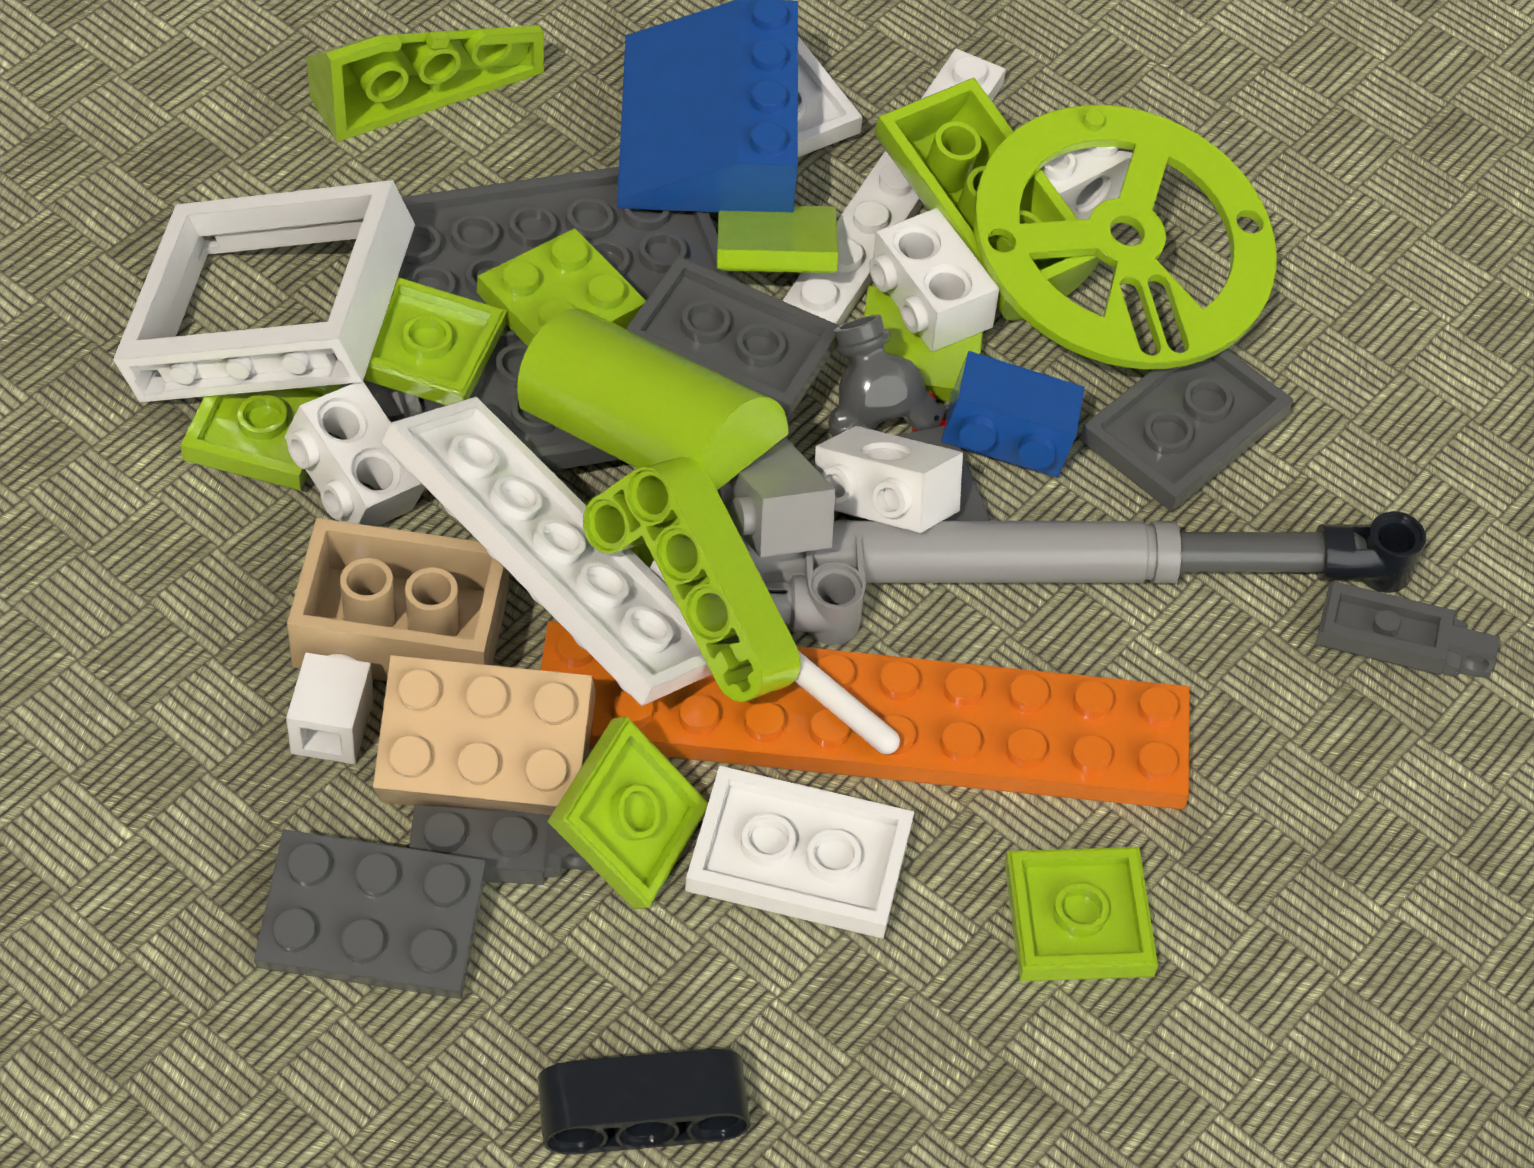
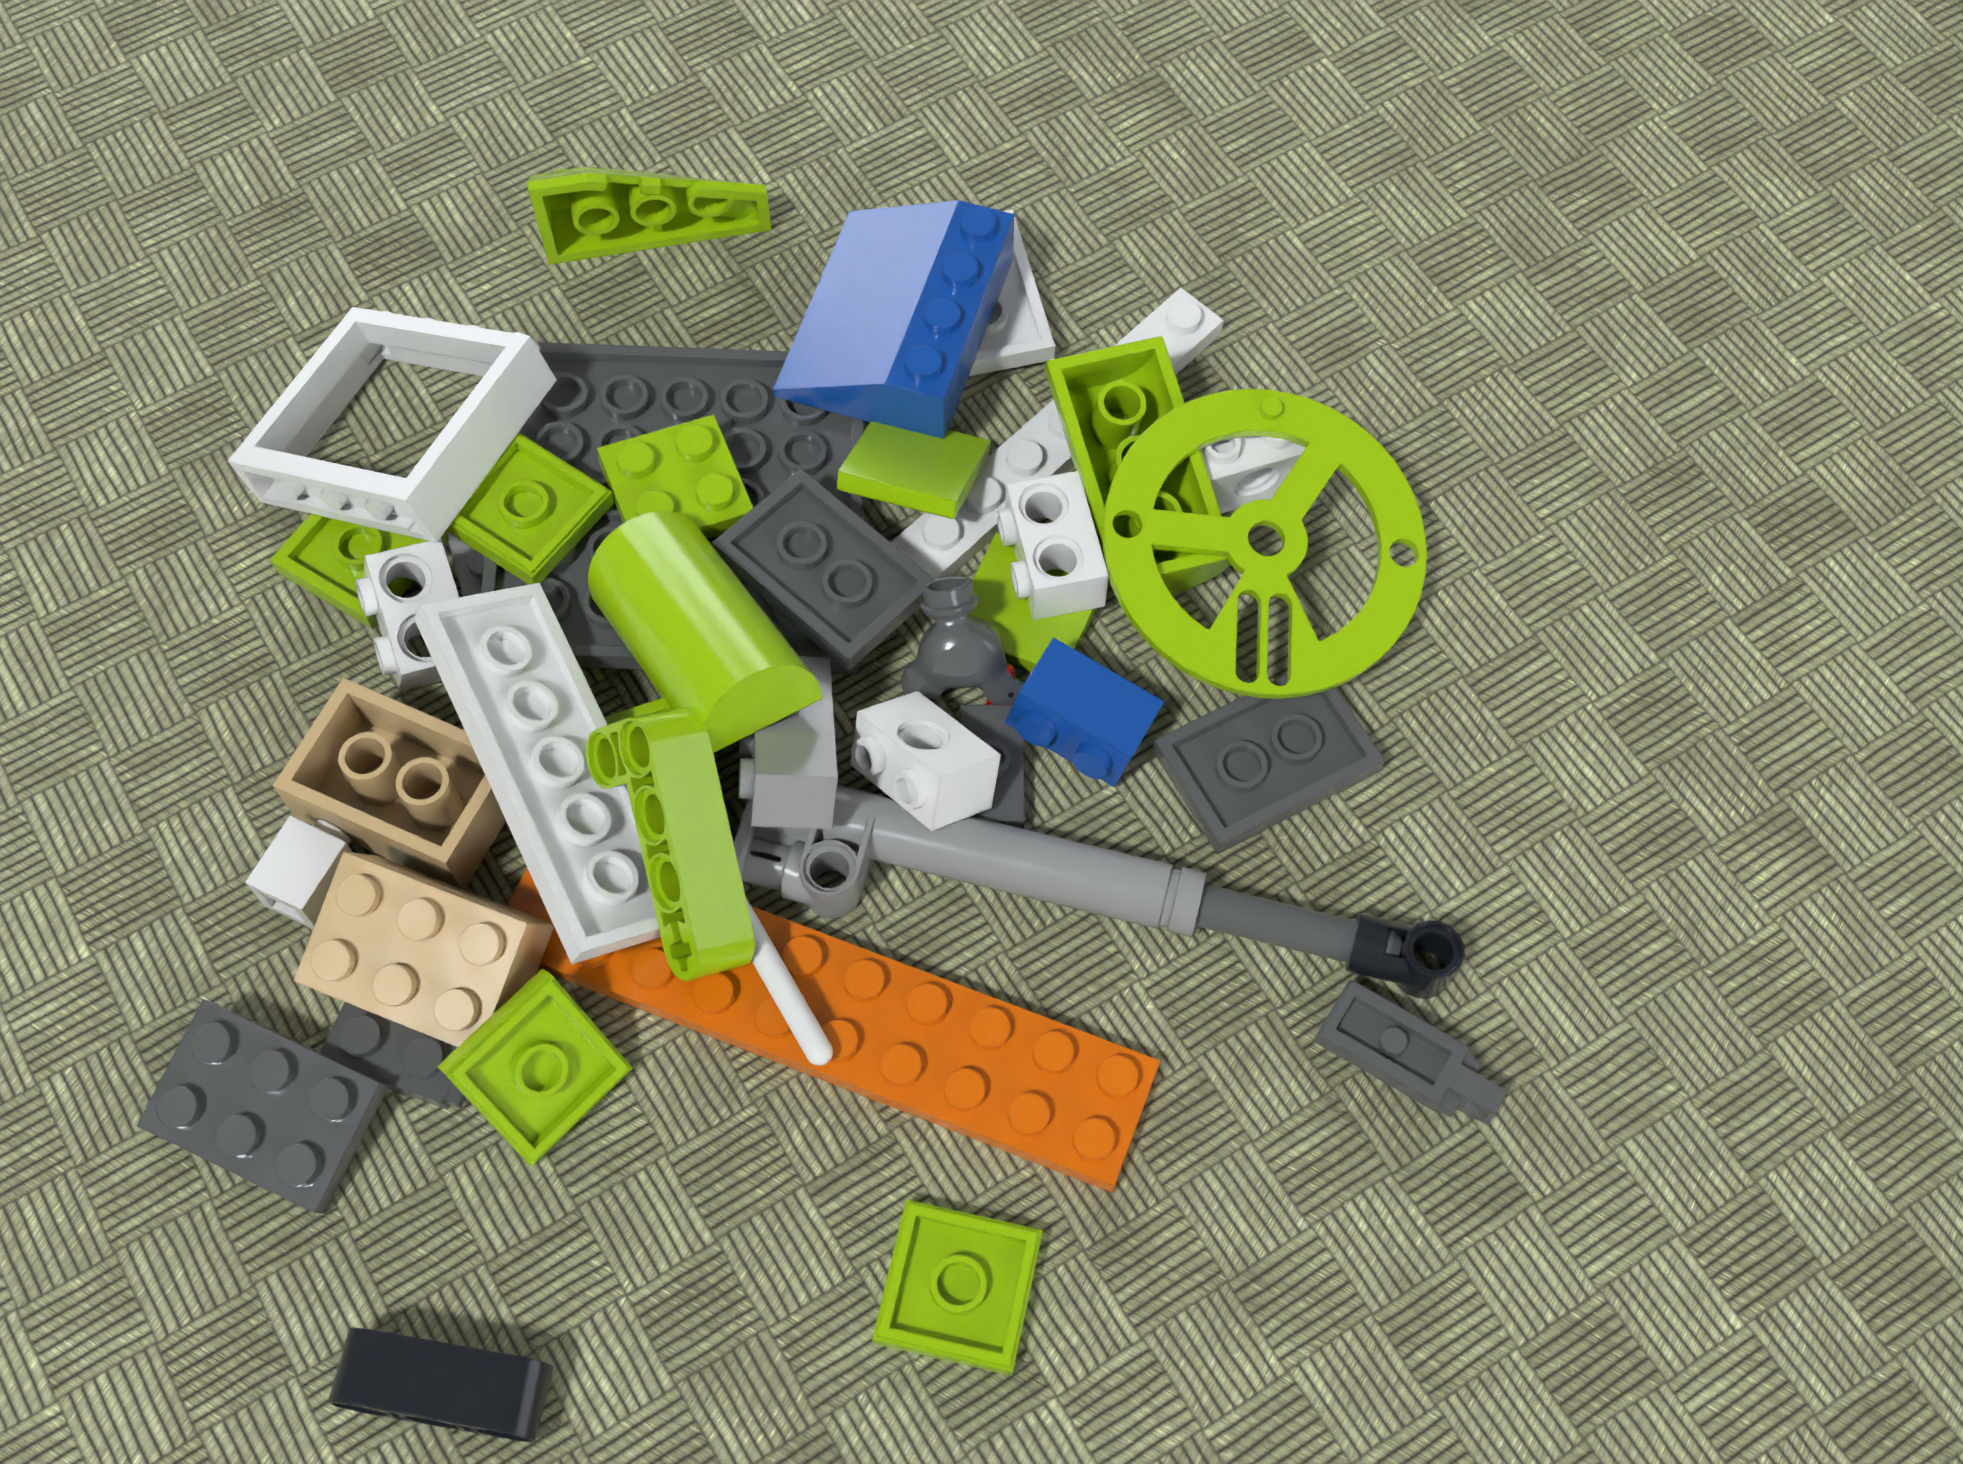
camera: 20 degrees right, 10 degrees up
(800, 851) = (698, 1146): white plate -> none

